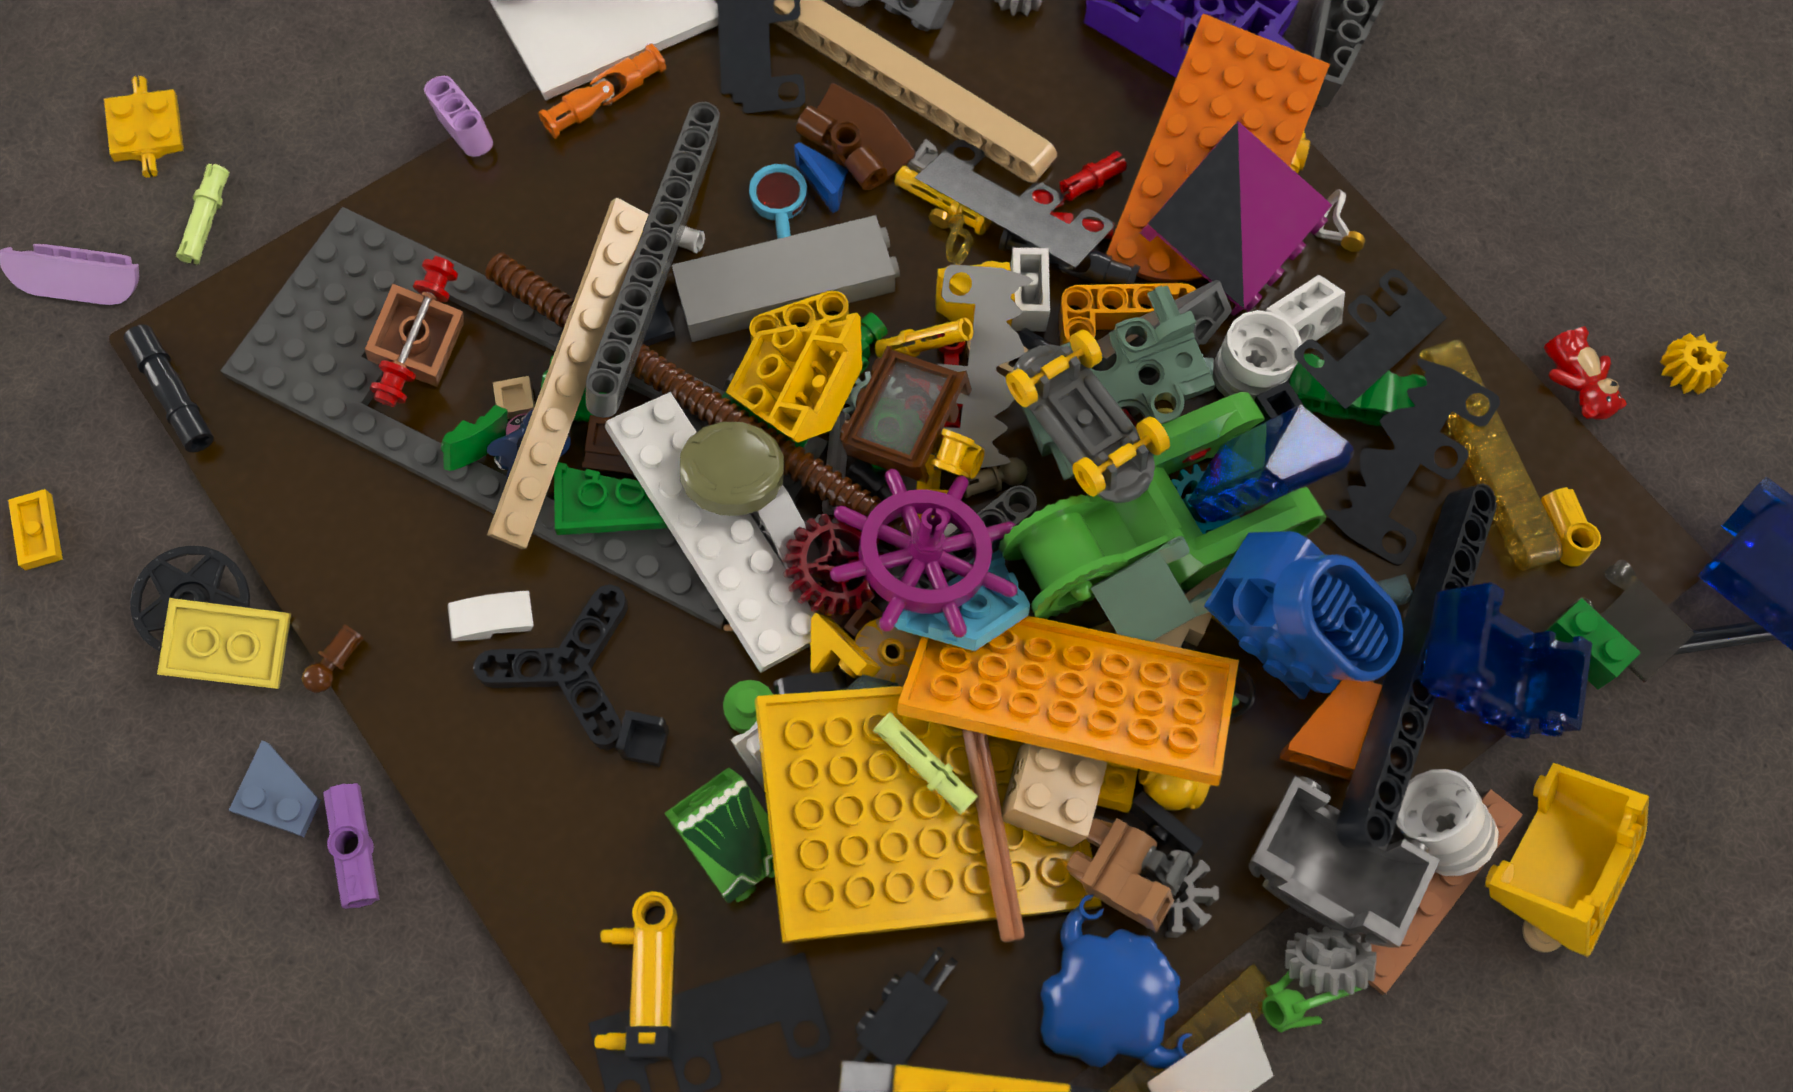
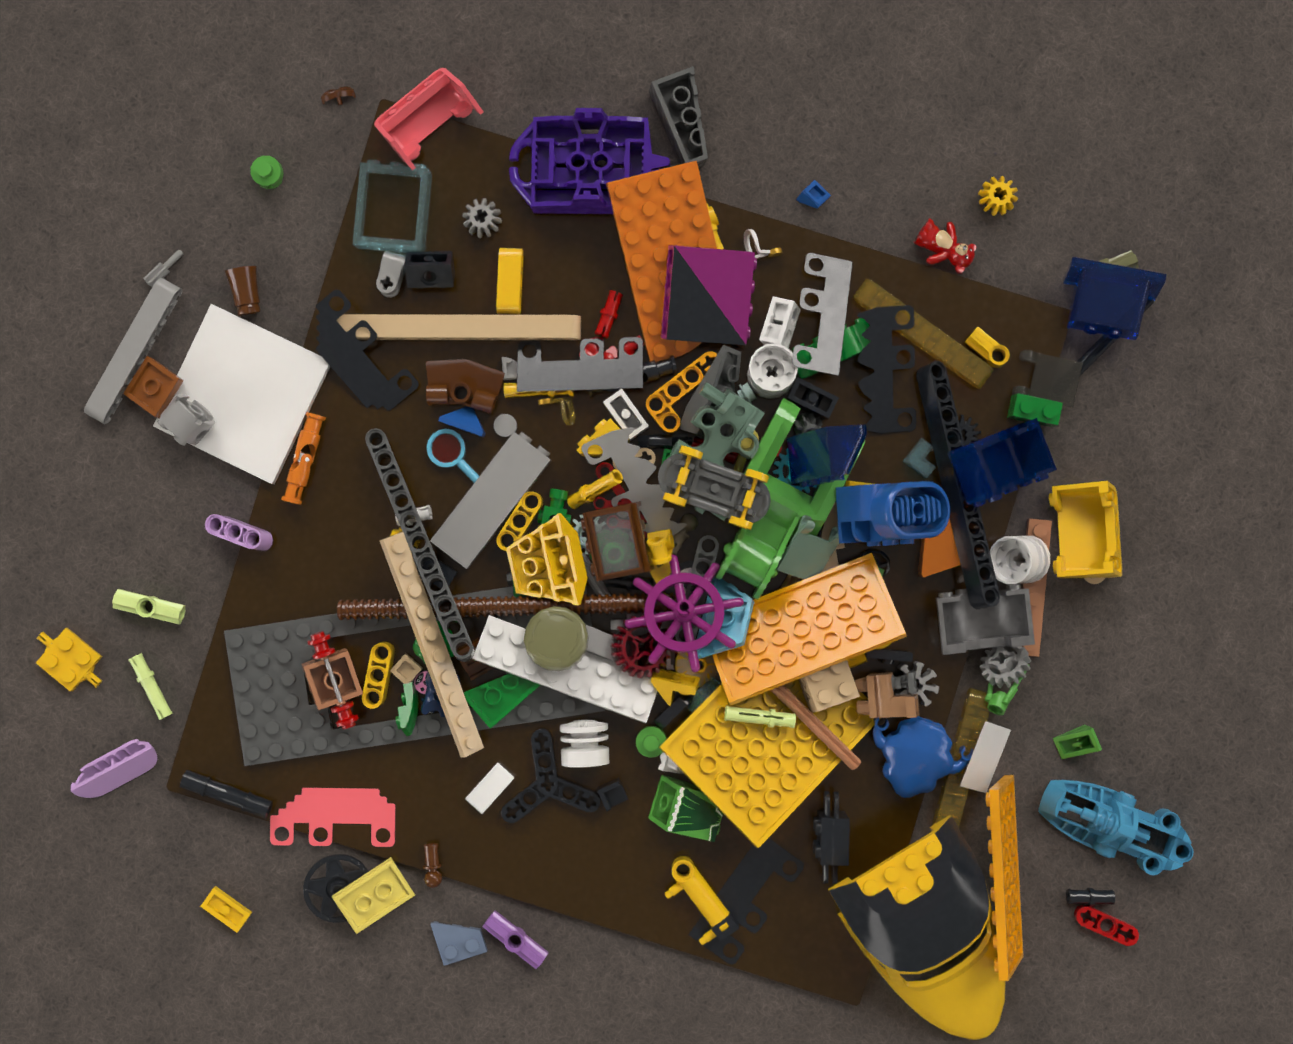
camera: 35 degrees left, 20 degrees up
(282, 501) = (335, 805): none -> coral piece
(285, 129) = (136, 603): none -> yellowish green piece
(468, 394) = (371, 683): none -> yellow beam
(664, 632) = (584, 744): none -> white wheel
(870, 206) = (505, 425): none -> light grey tile
(1002, 65) = (509, 281): none -> yellow beam
(1444, 218) = (813, 195): none -> blue slope

